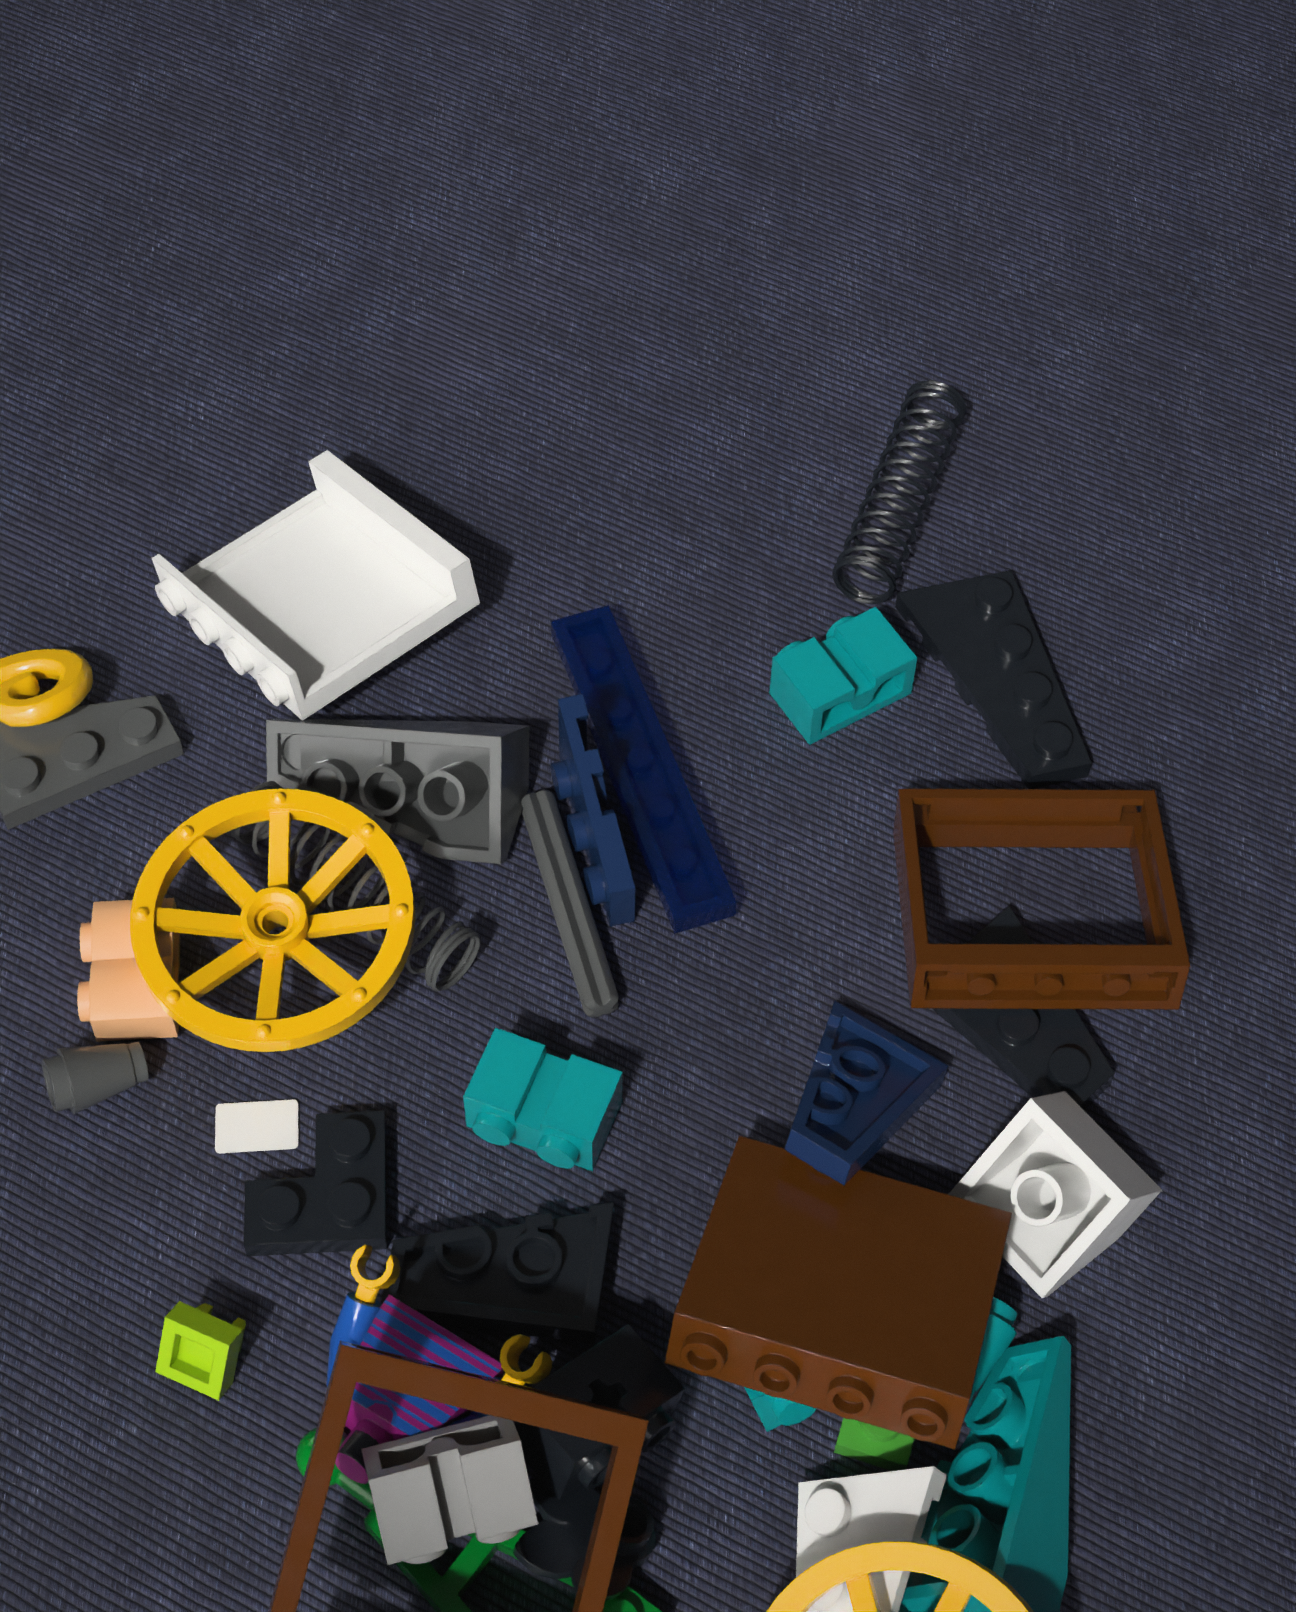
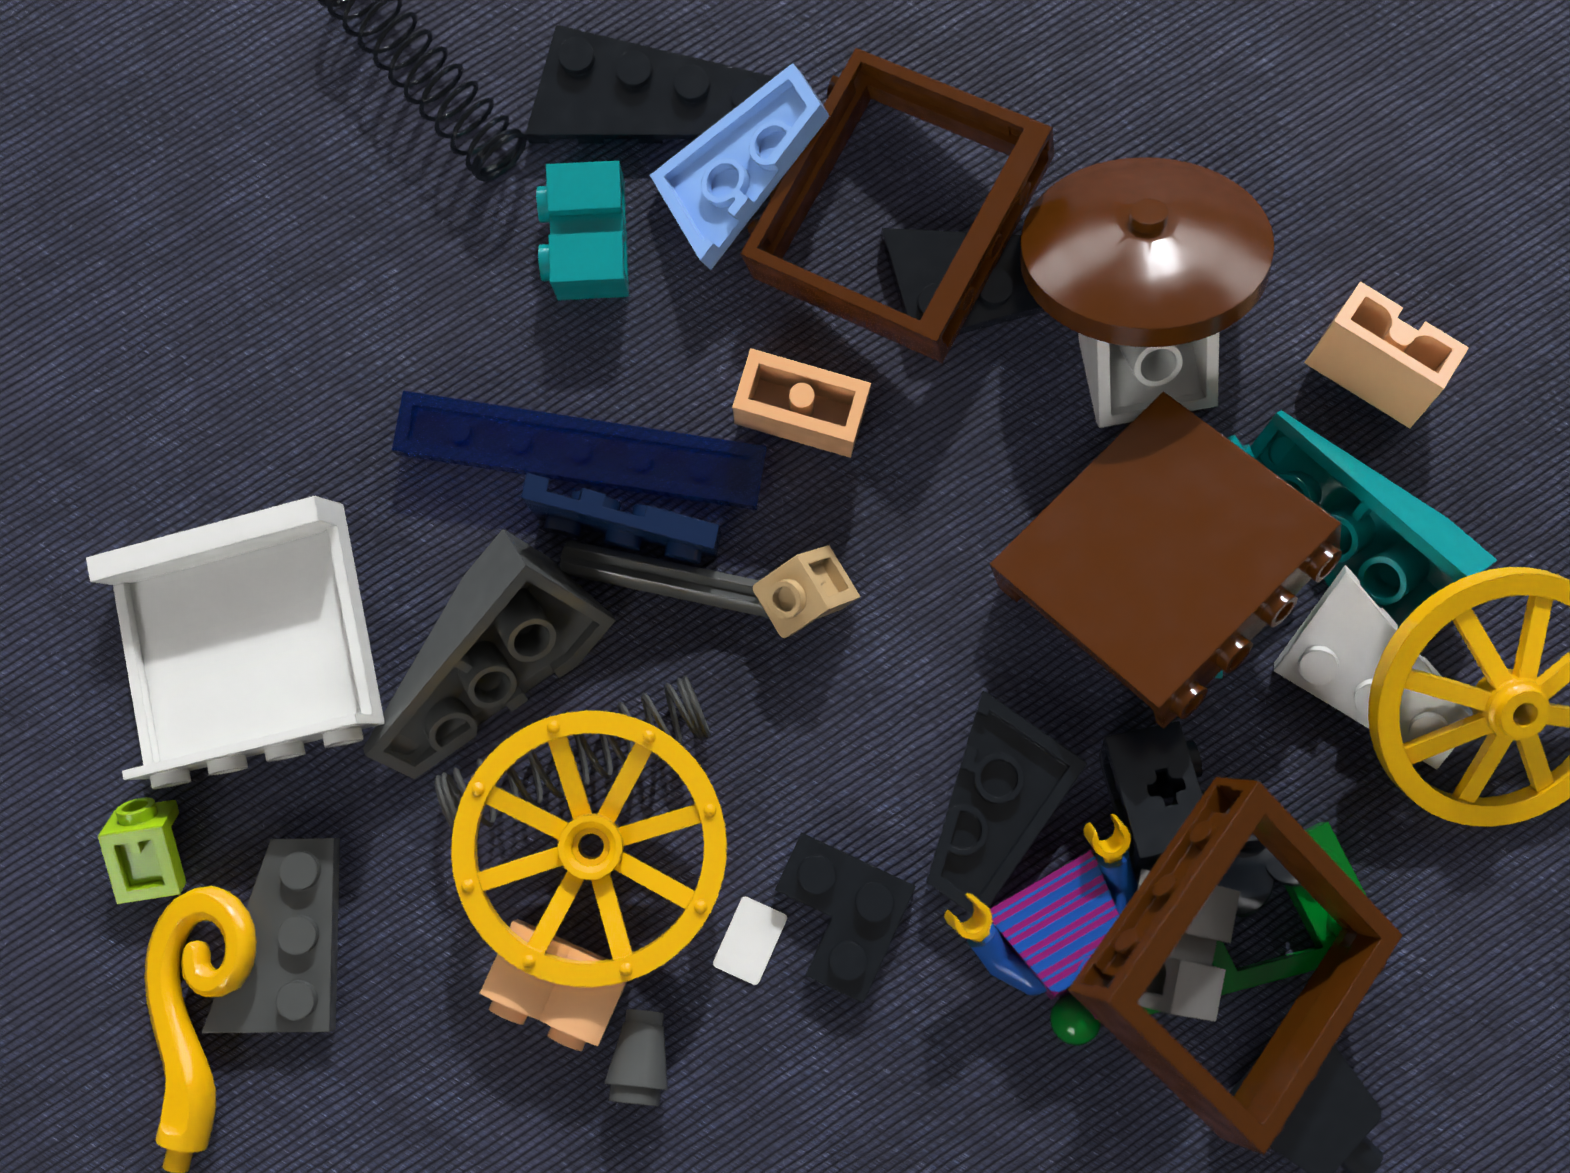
camera: 60 degrees left, 25 degrees up
(96, 608) = (142, 851): none -> lime bracket
(200, 1349) = (940, 1079): lime tile -> none
(542, 1101) = (864, 699): teal brick -> none
(624, 998) = (805, 590): none -> tan bracket
(793, 906) = (800, 402): none -> light nougat brick
(858, 1094) = (997, 449): dark blue wing -> none
(984, 752) = (738, 162): none -> light blue wing
(1138, 1124) = (1146, 252): none -> reddish brown dish
(1188, 1421) = (1386, 358): none -> light nougat brick

